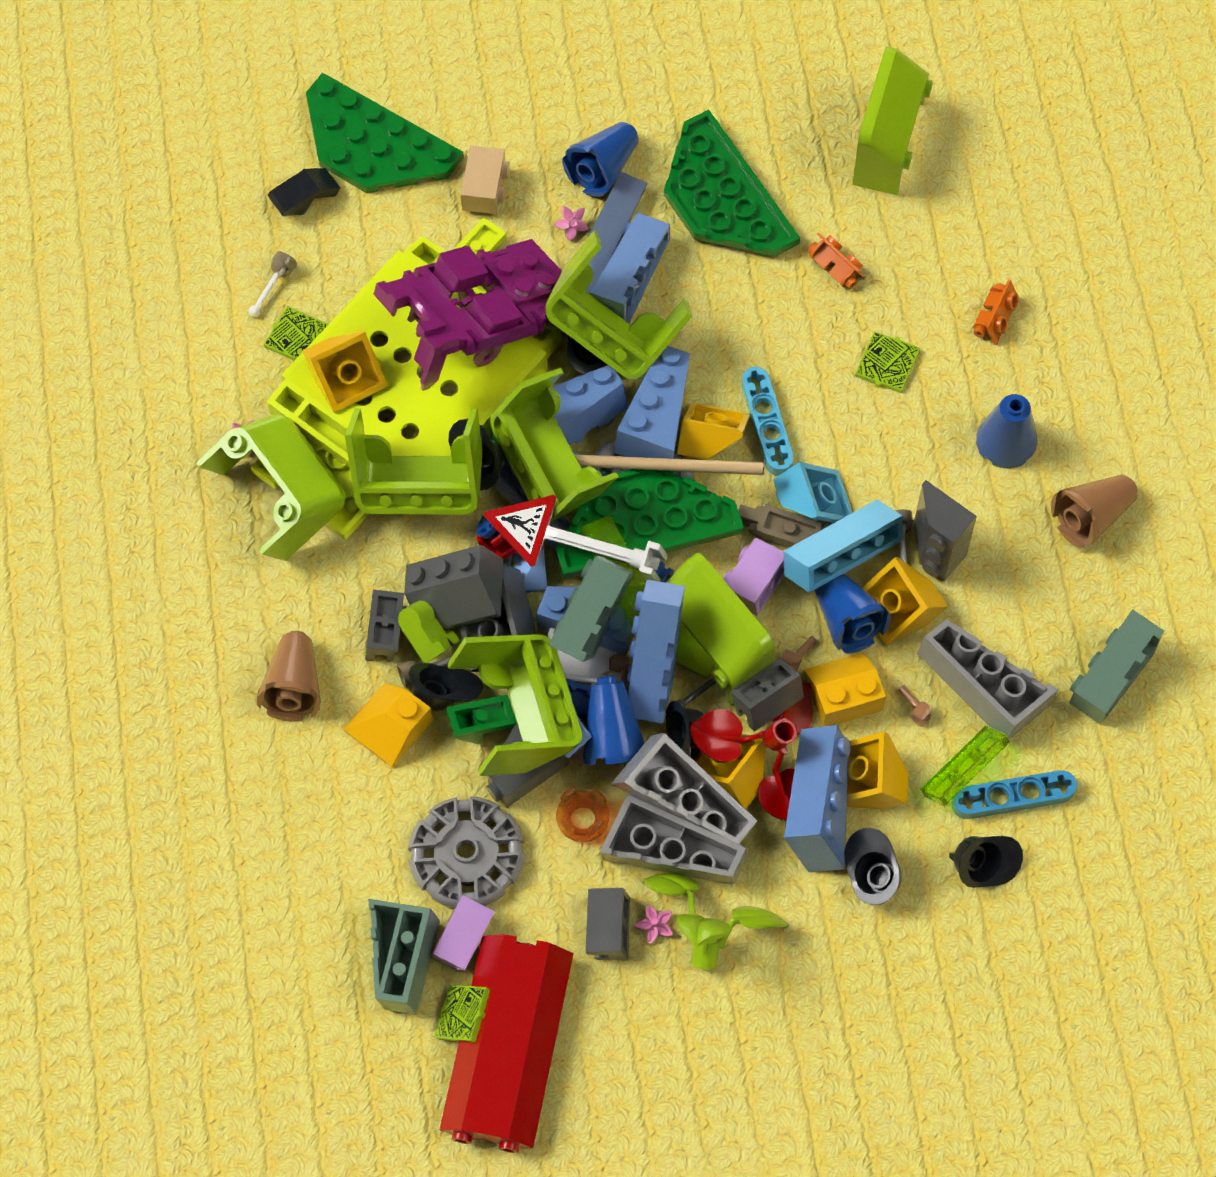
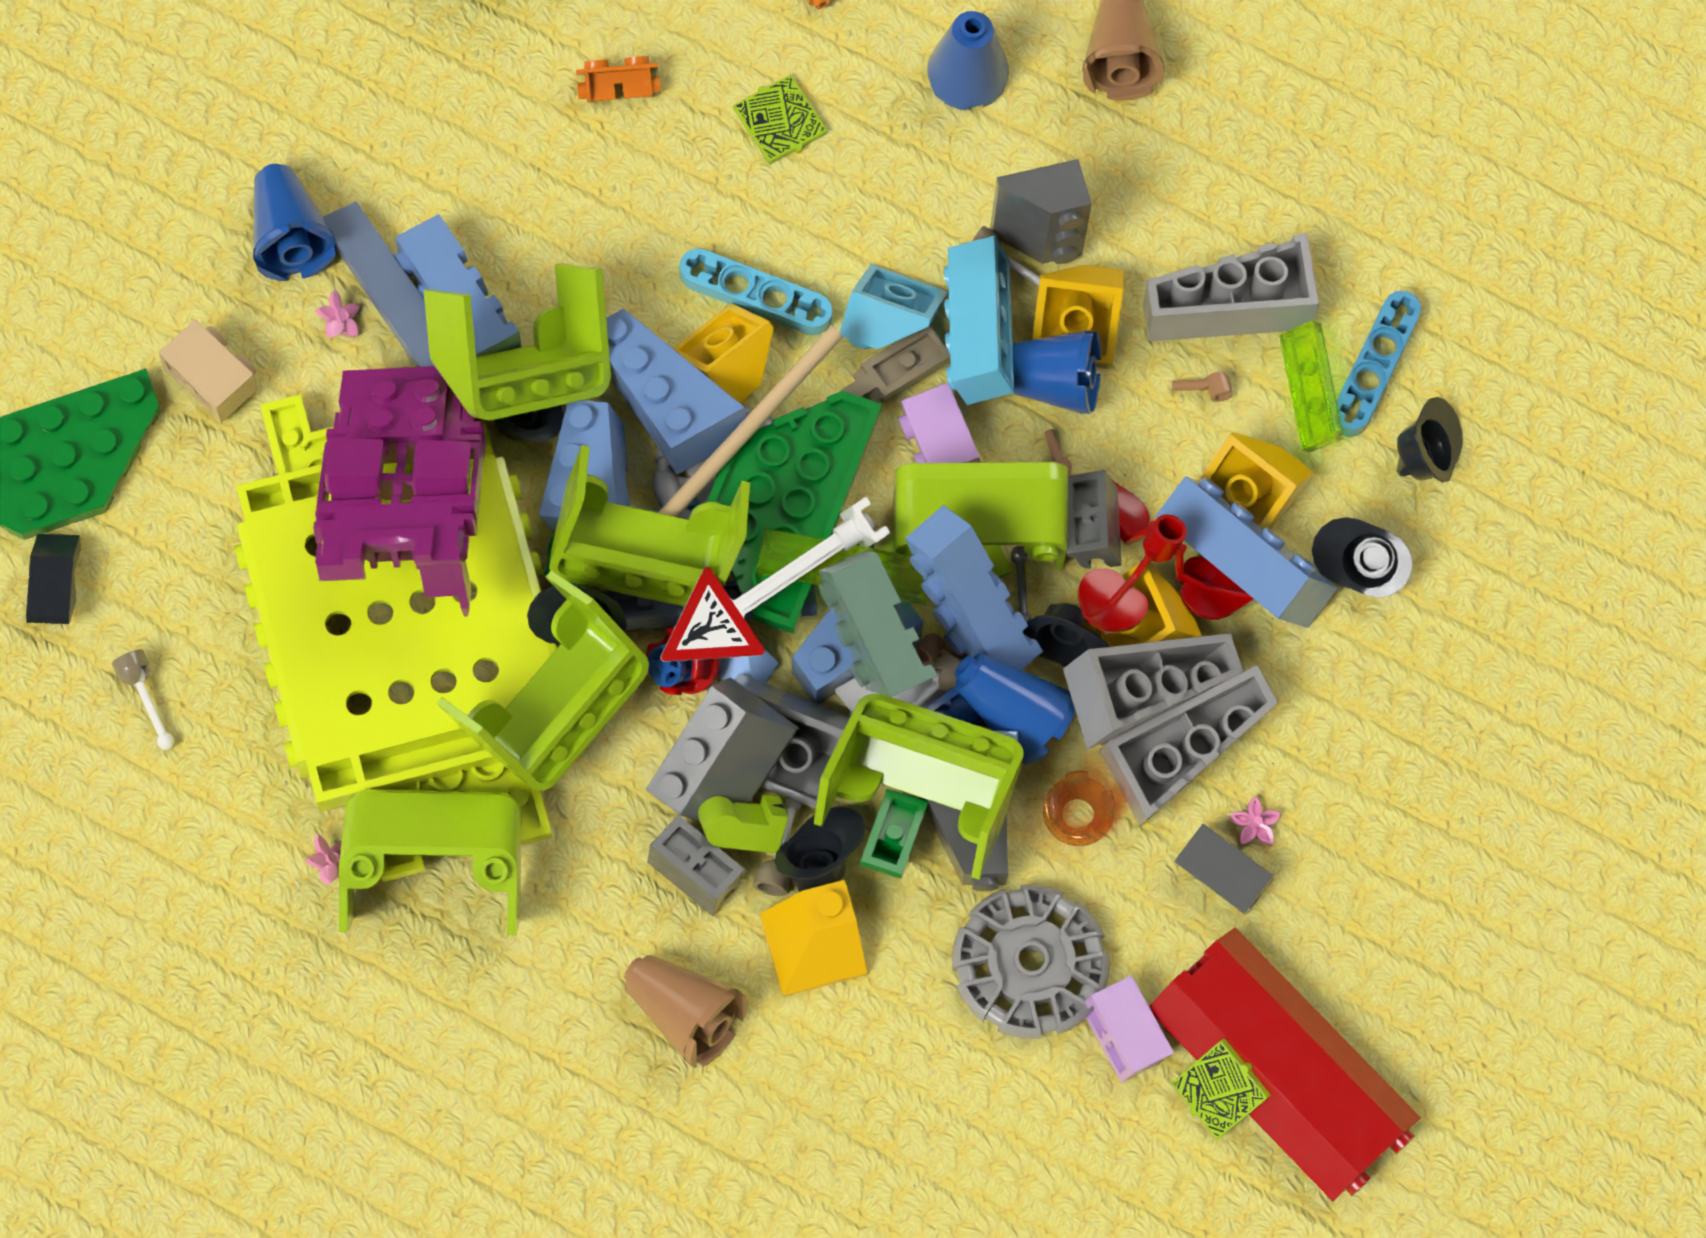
camera: 60 degrees left, 5 degrees up
(293, 333) = (237, 715): lime piece -> none
(345, 369) = (356, 685): yellow slope -> none
(402, 953) = (1104, 1106): sand green wedge -> none
(705, 931) = (1321, 779): lime plant -> none
(721, 195) = (432, 135): green plate -> none
(845, 689) = (1134, 439): yellow slope -> none
(1116, 667) = (1316, 160): sand green wedge -> none

